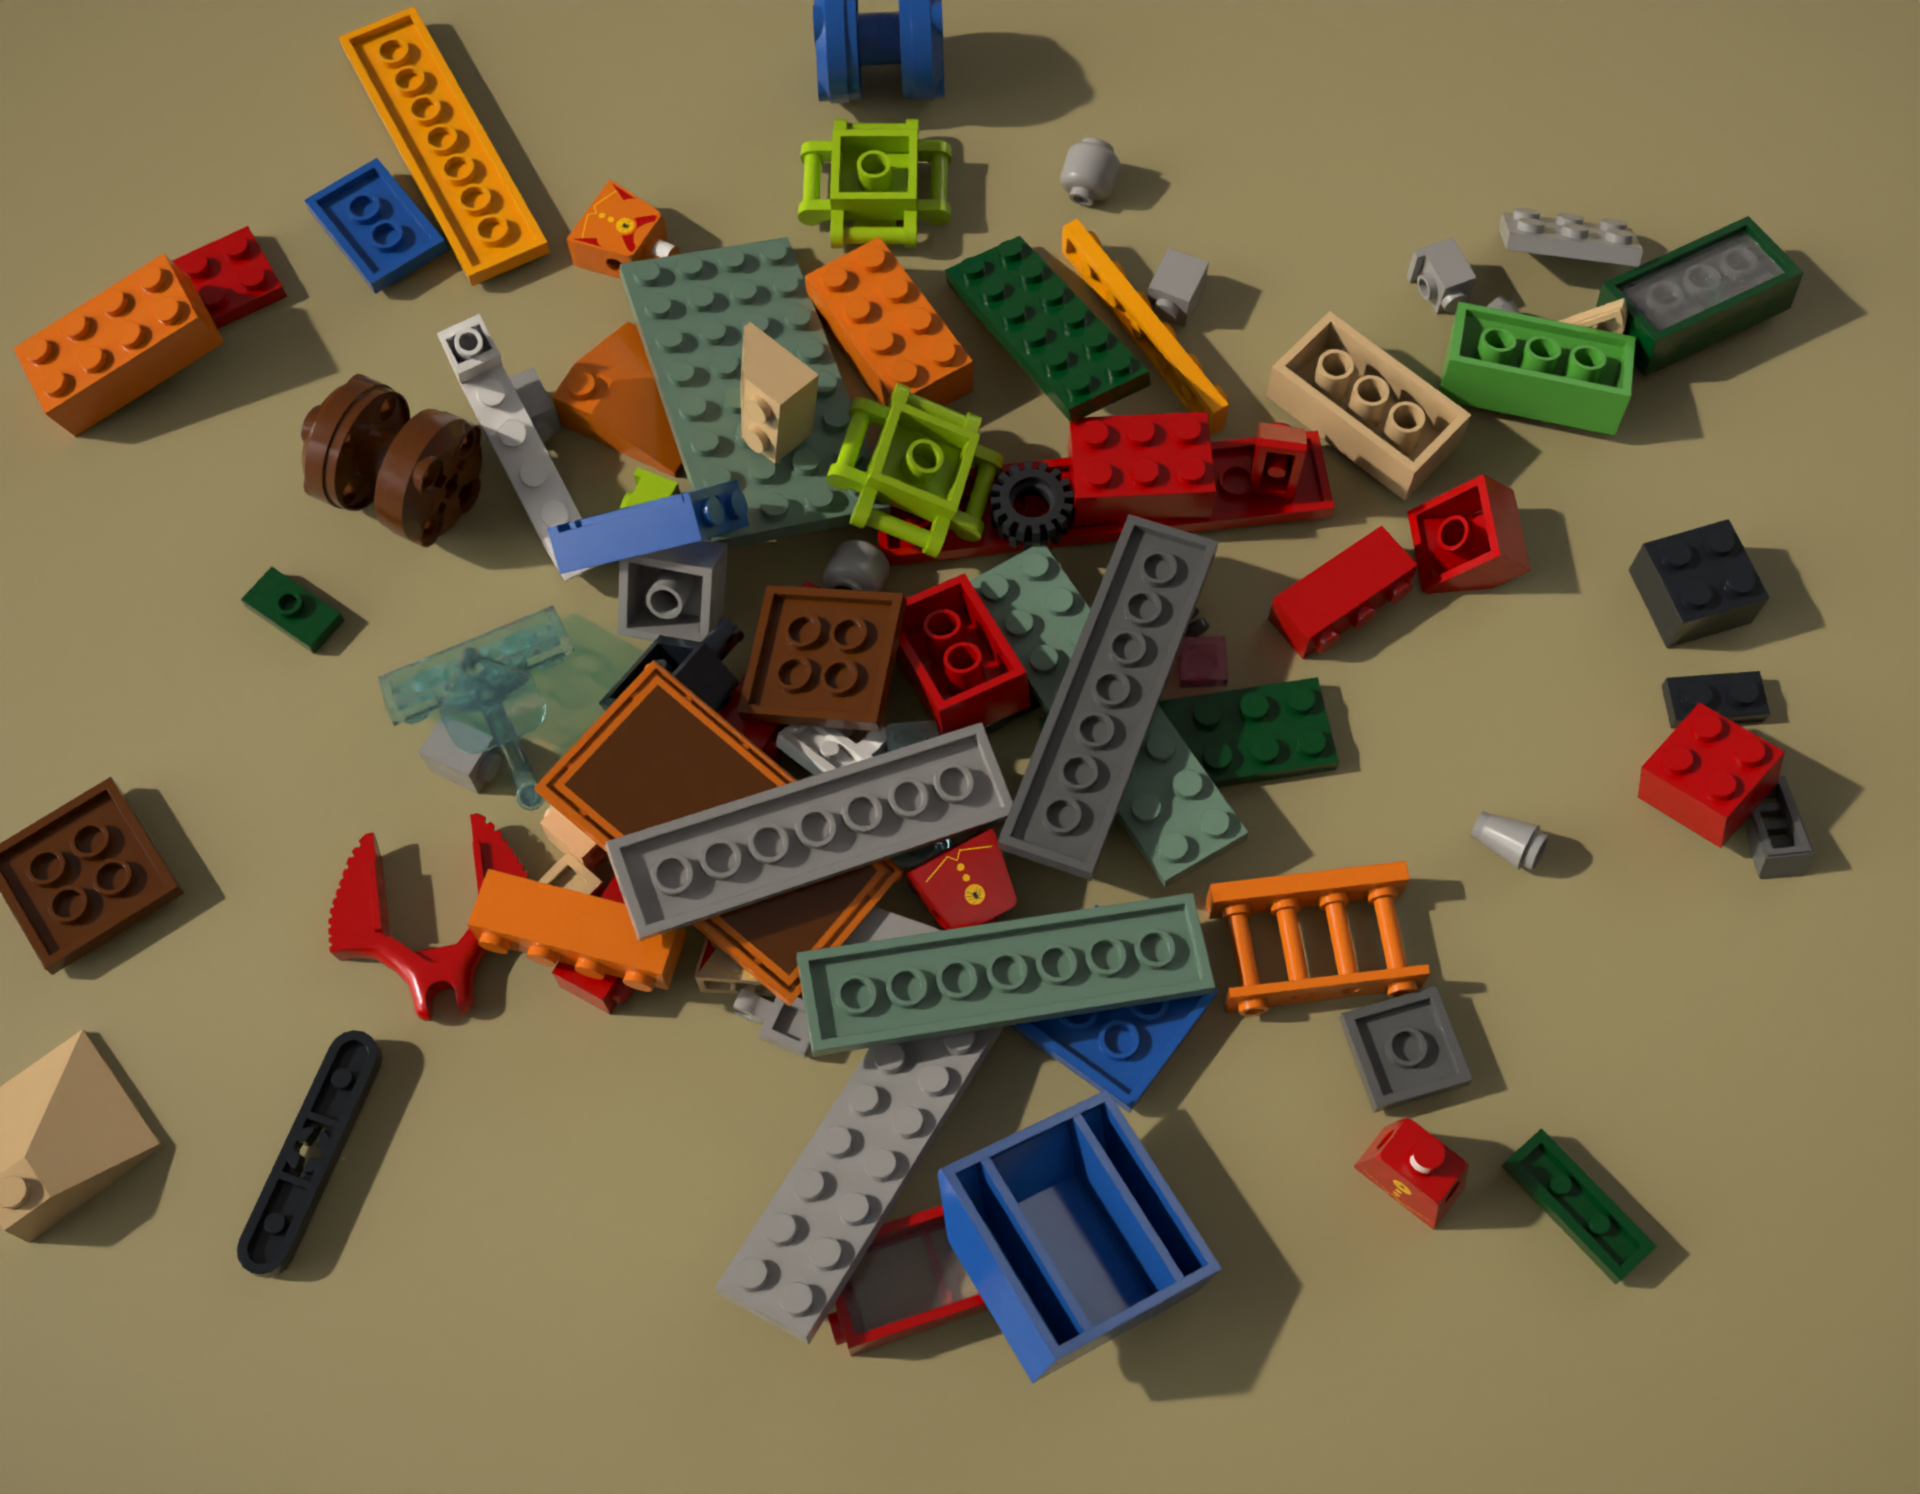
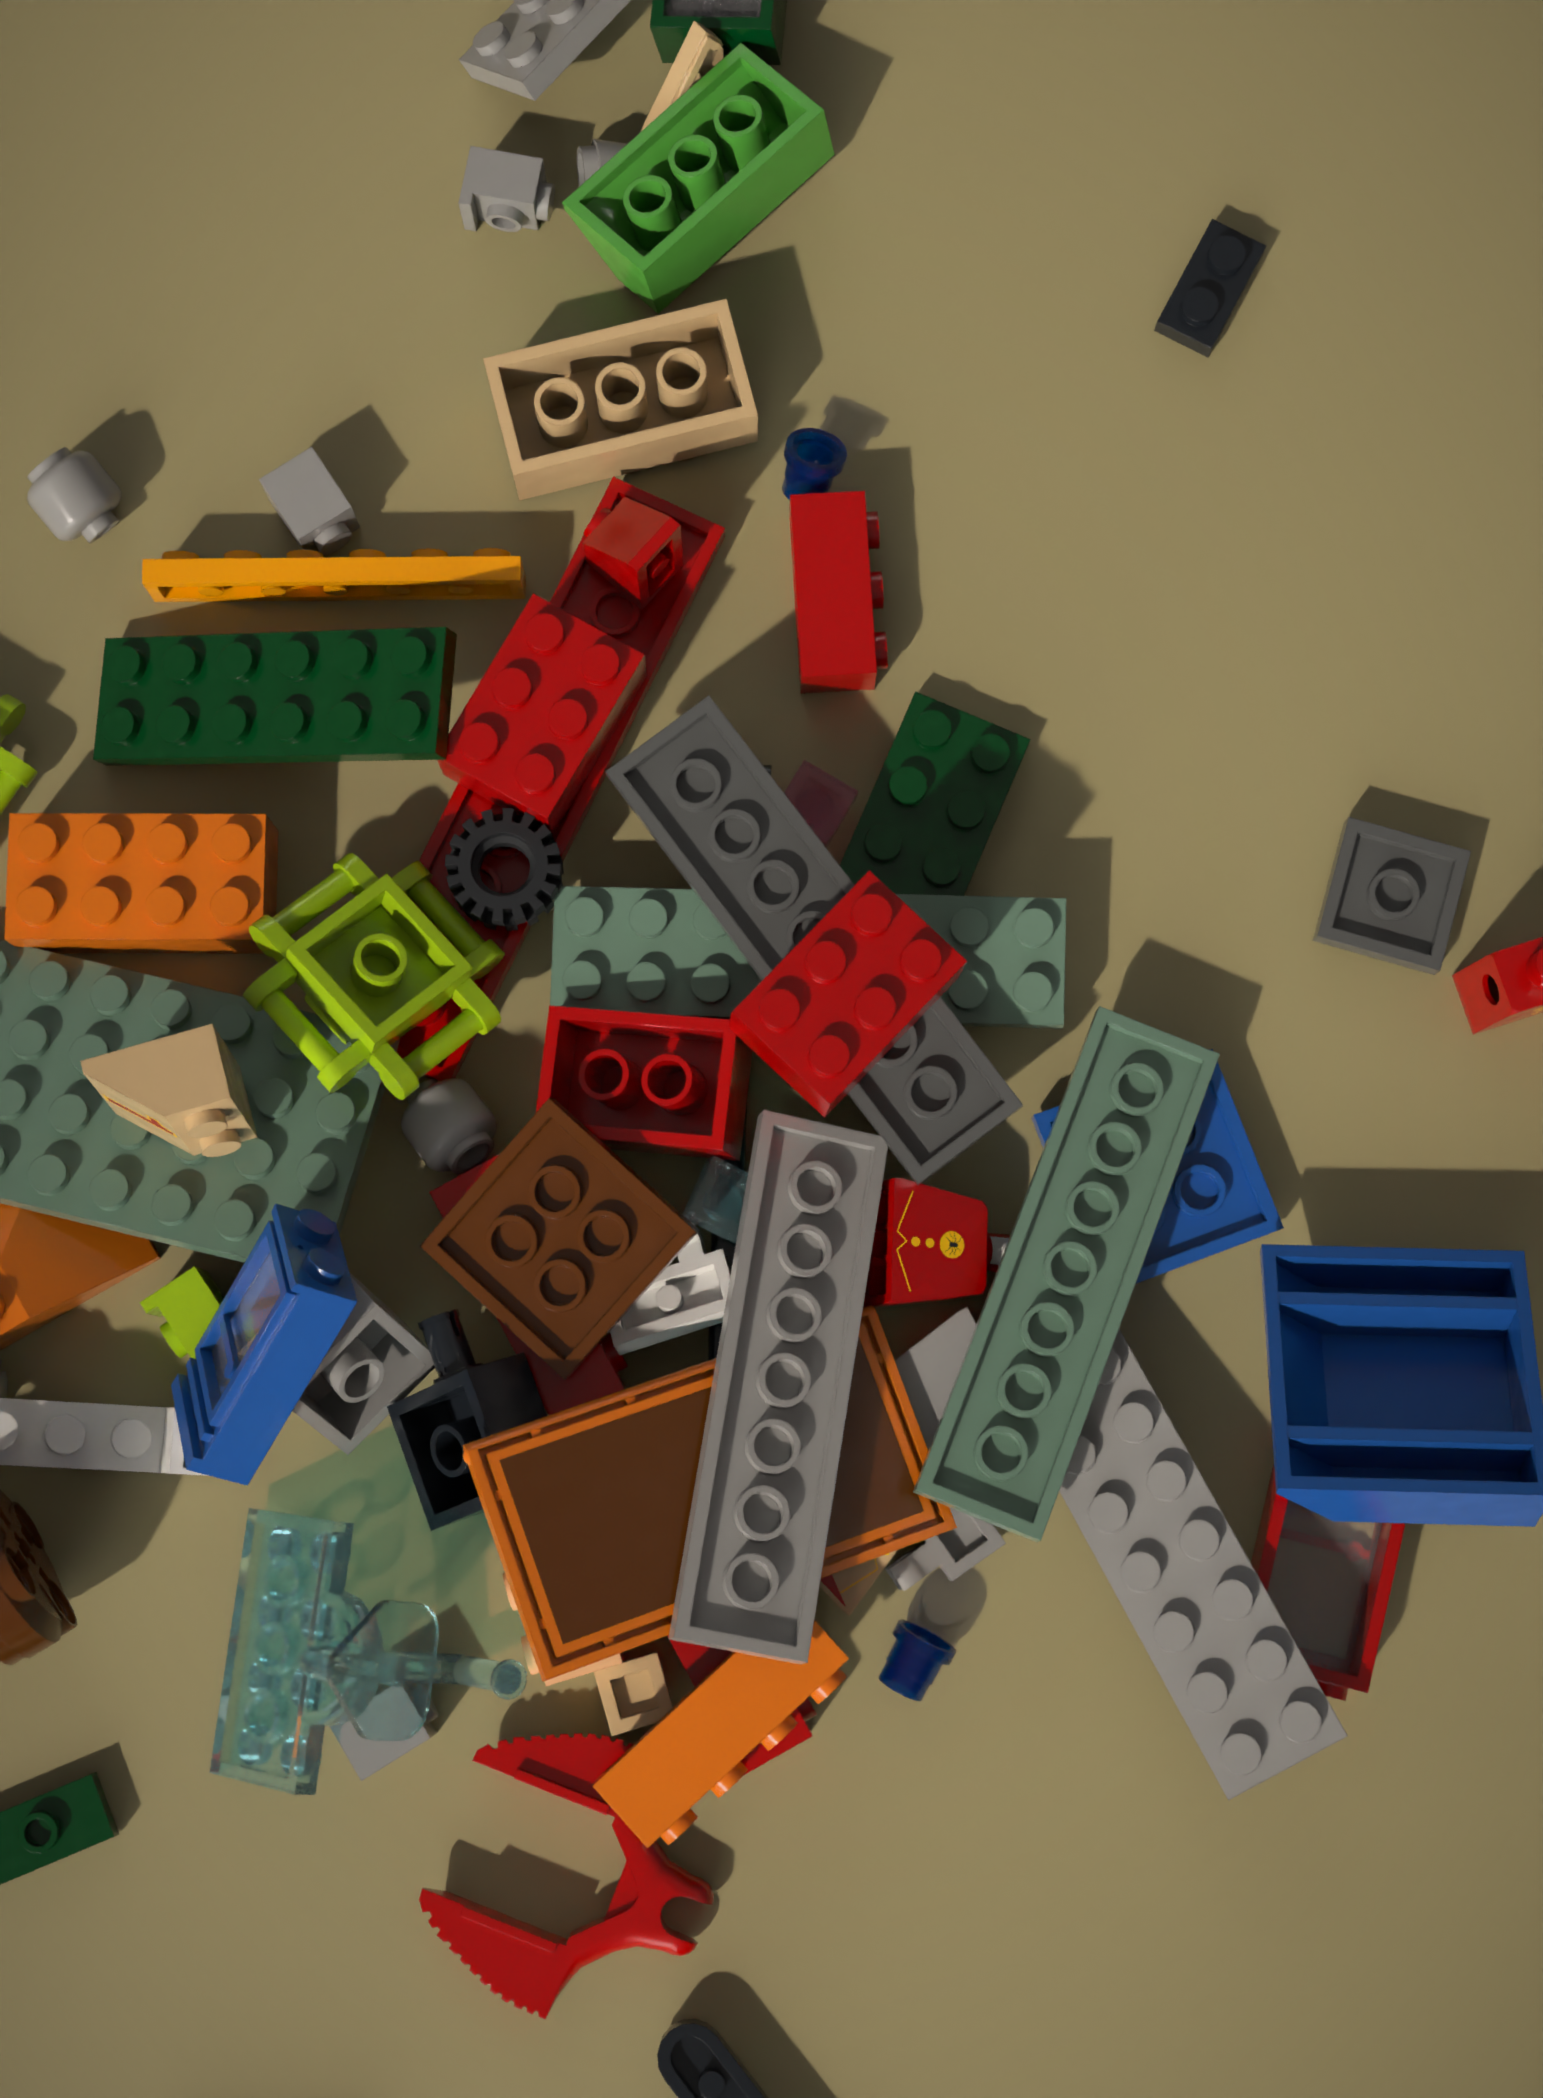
camera: 60 degrees left, 15 degrees up
(693, 1044) = (914, 1660): none -> clear blue piece
(1085, 715) = (846, 993): none -> red brick
(1332, 892) = (1181, 854): orange fence -> none
(1415, 529) = (812, 461): none -> clear blue piece
(1469, 538) = (865, 397): red slope -> none
(1511, 839) = (1235, 620): light grey cone -> none
(1698, 583) = (1074, 204): black brick -> none
(1710, 774) = (1304, 363): red brick -> none
(1779, 856) = (1396, 318): dark grey slope -> none

